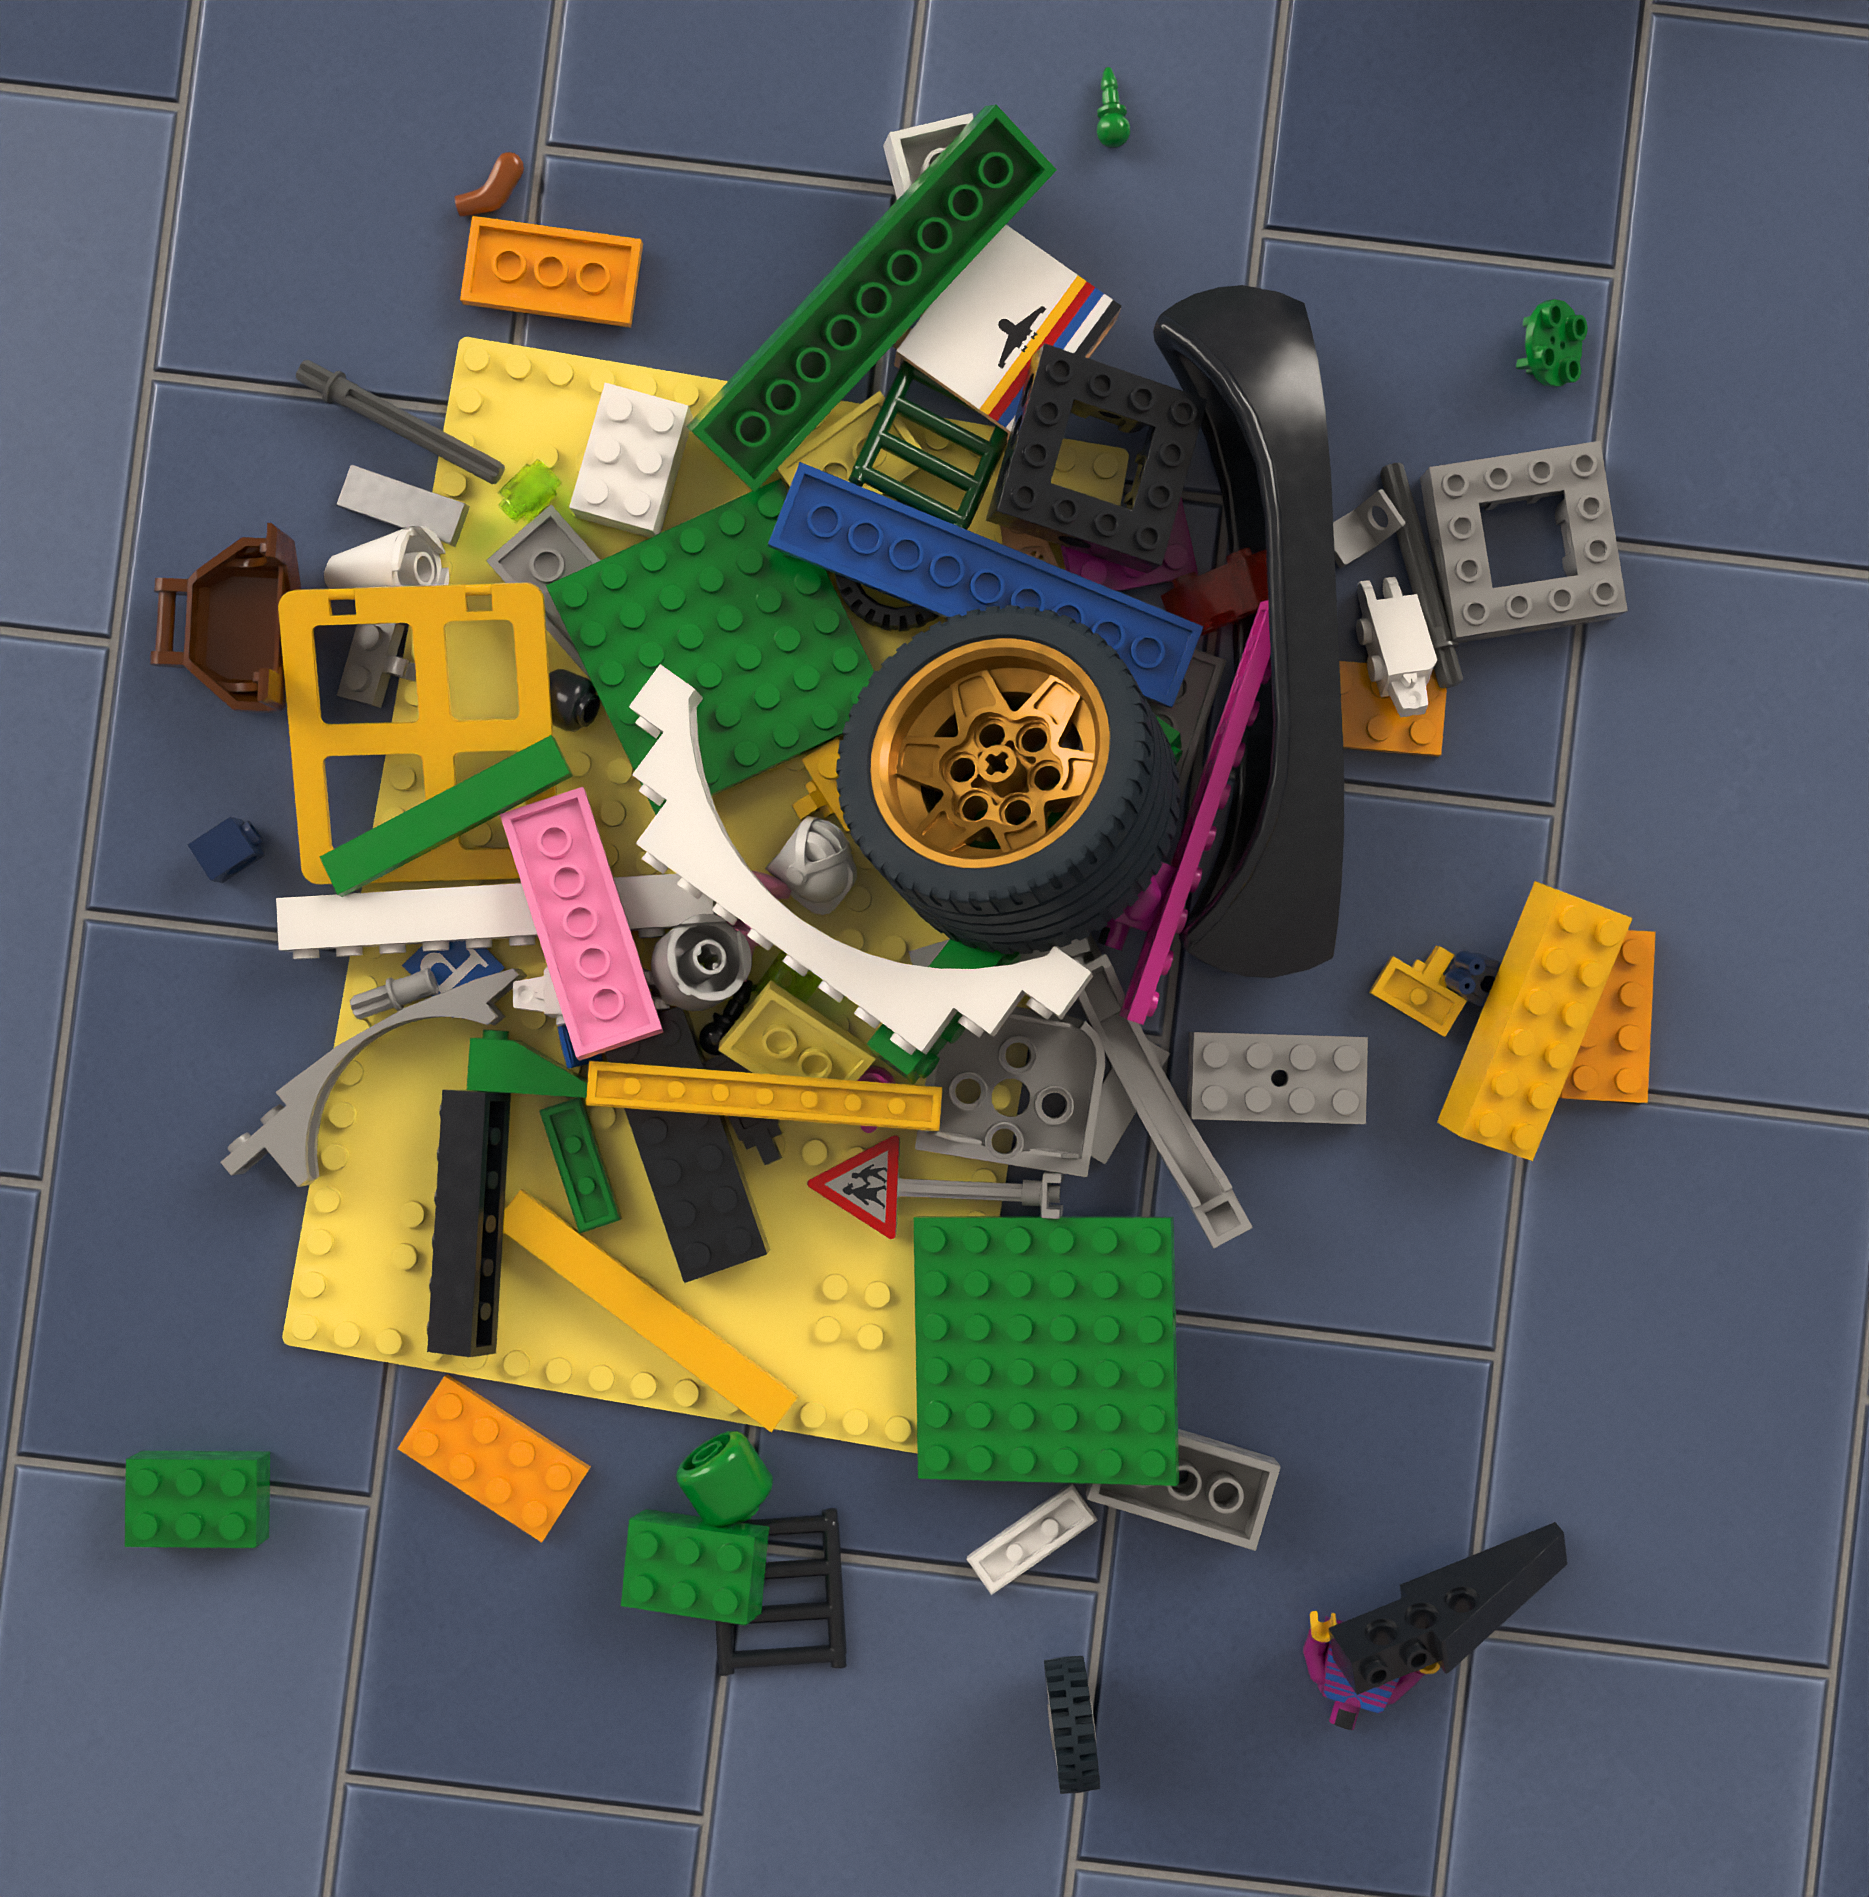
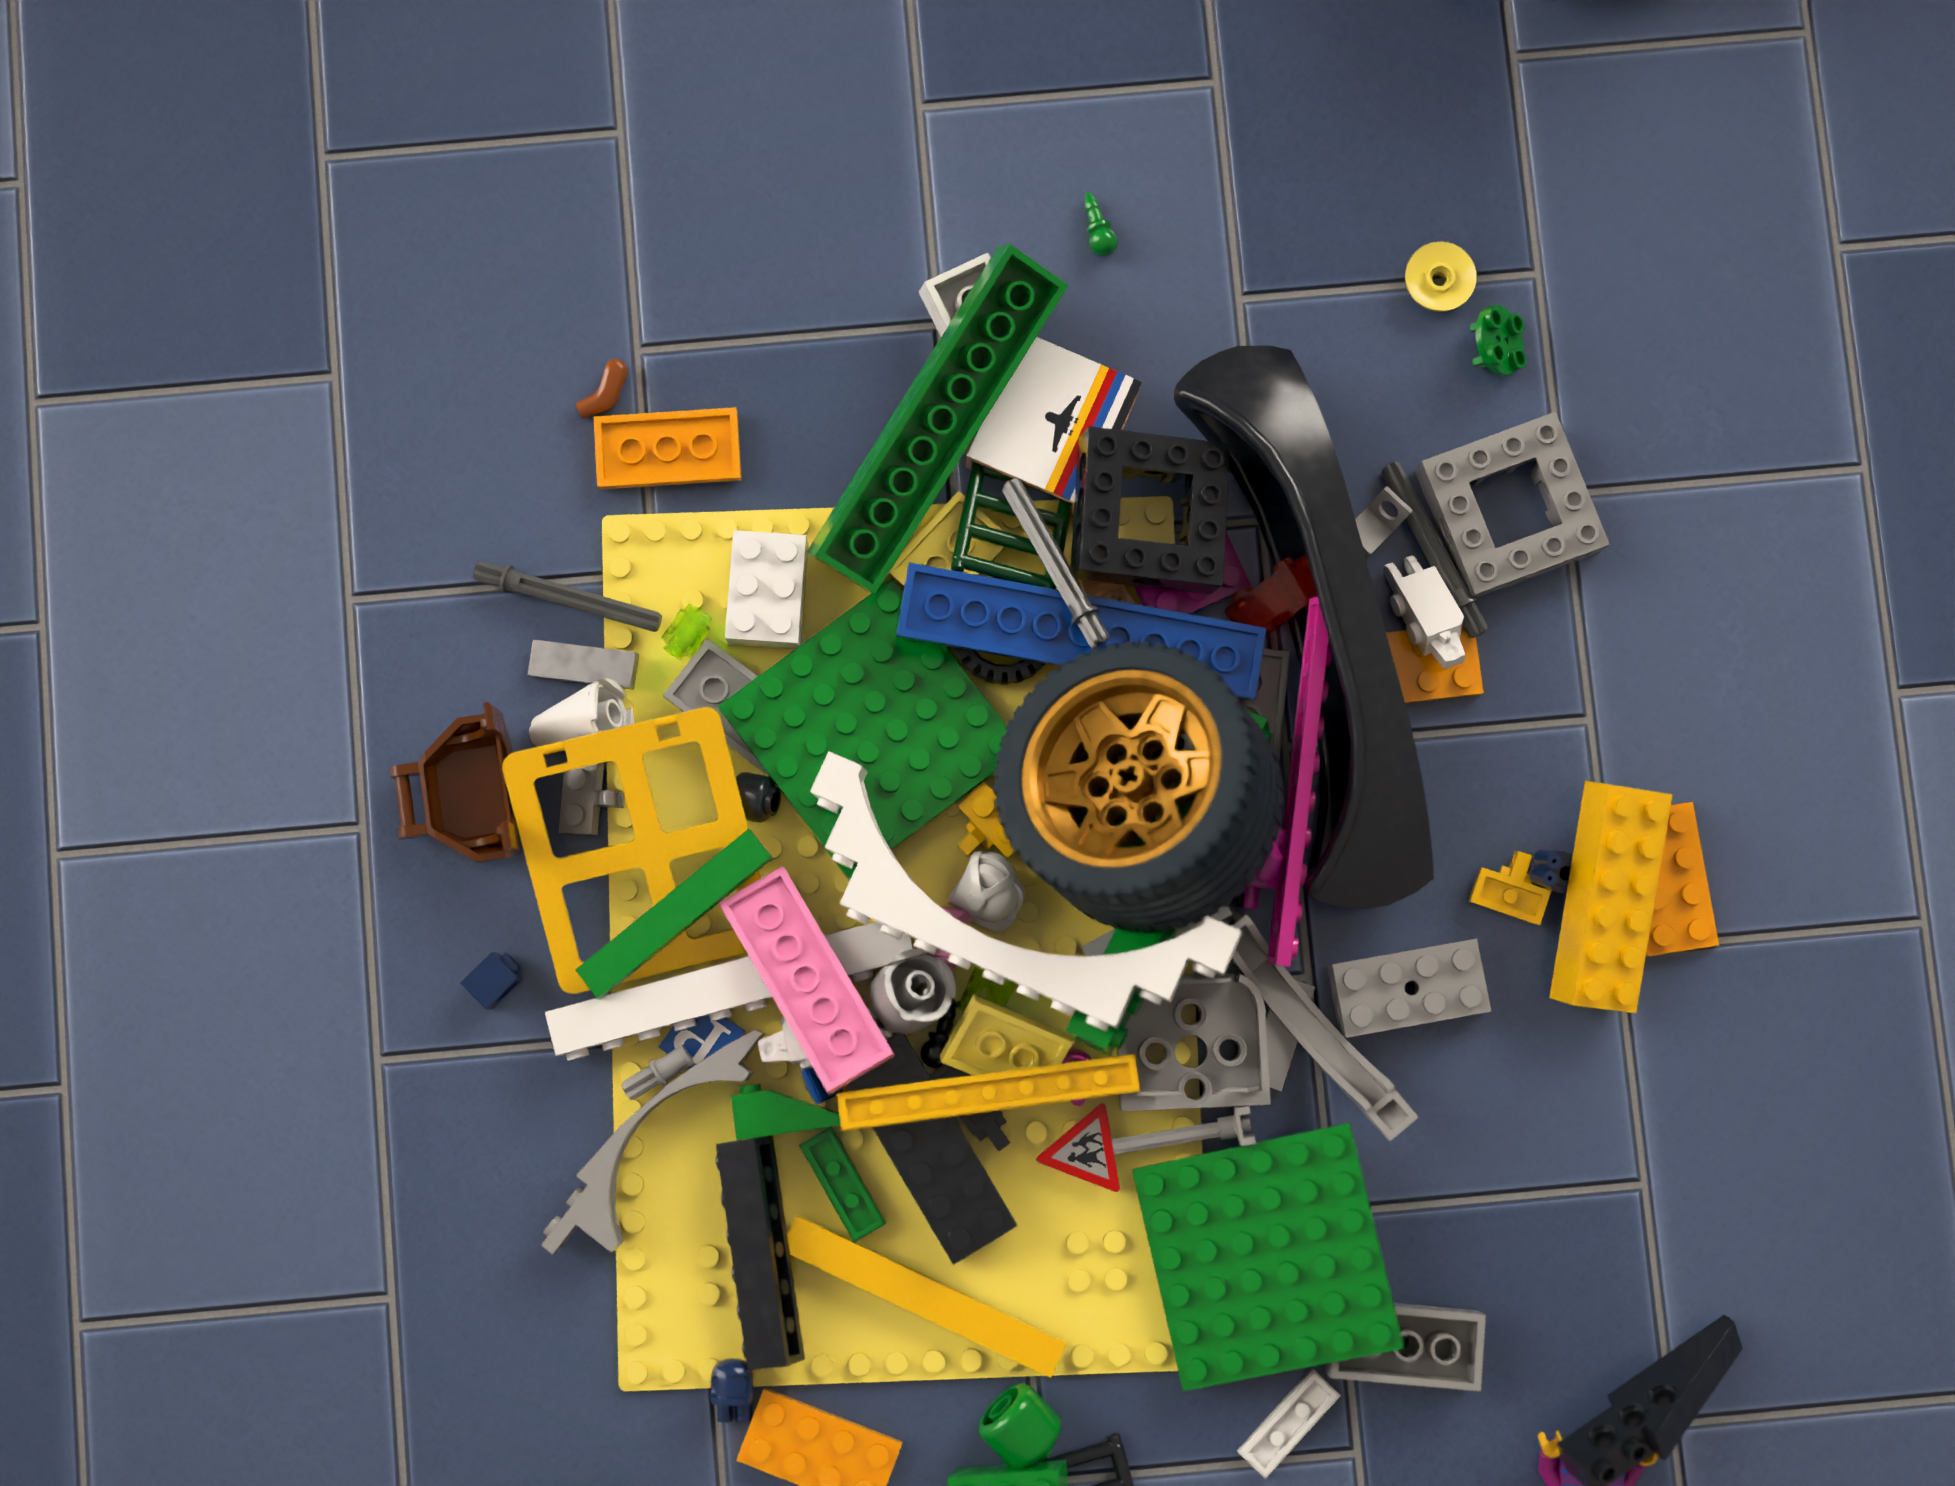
camera: 15 degrees left, 5 degrees down
(407, 1370) = (732, 1390): none -> dark blue piece
(991, 564) = (1057, 566): none -> axle
(1513, 237) = (1445, 261): none -> light yellow dish

